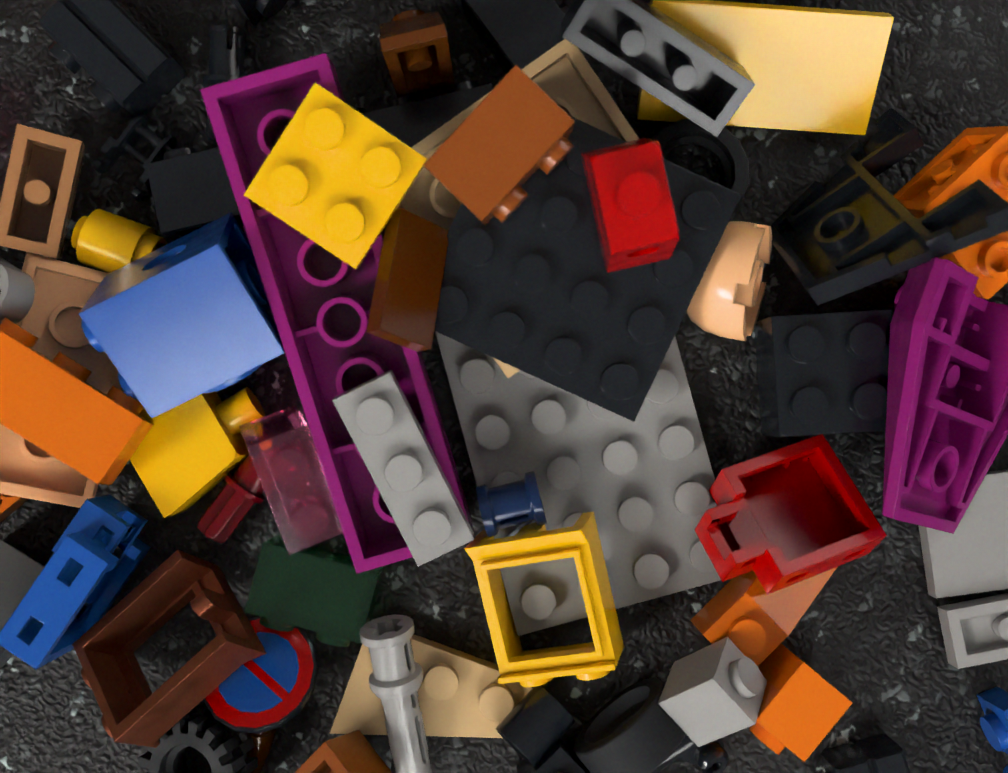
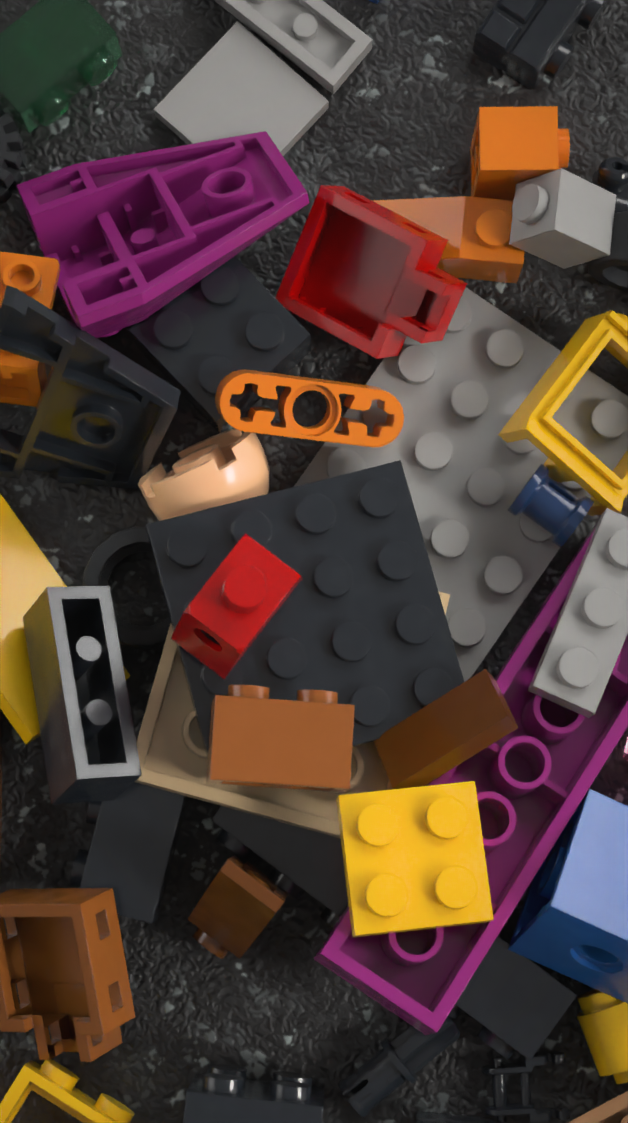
camera: 125 degrees left, 5 degrees down
(702, 431) = (353, 431): none -> orange beam

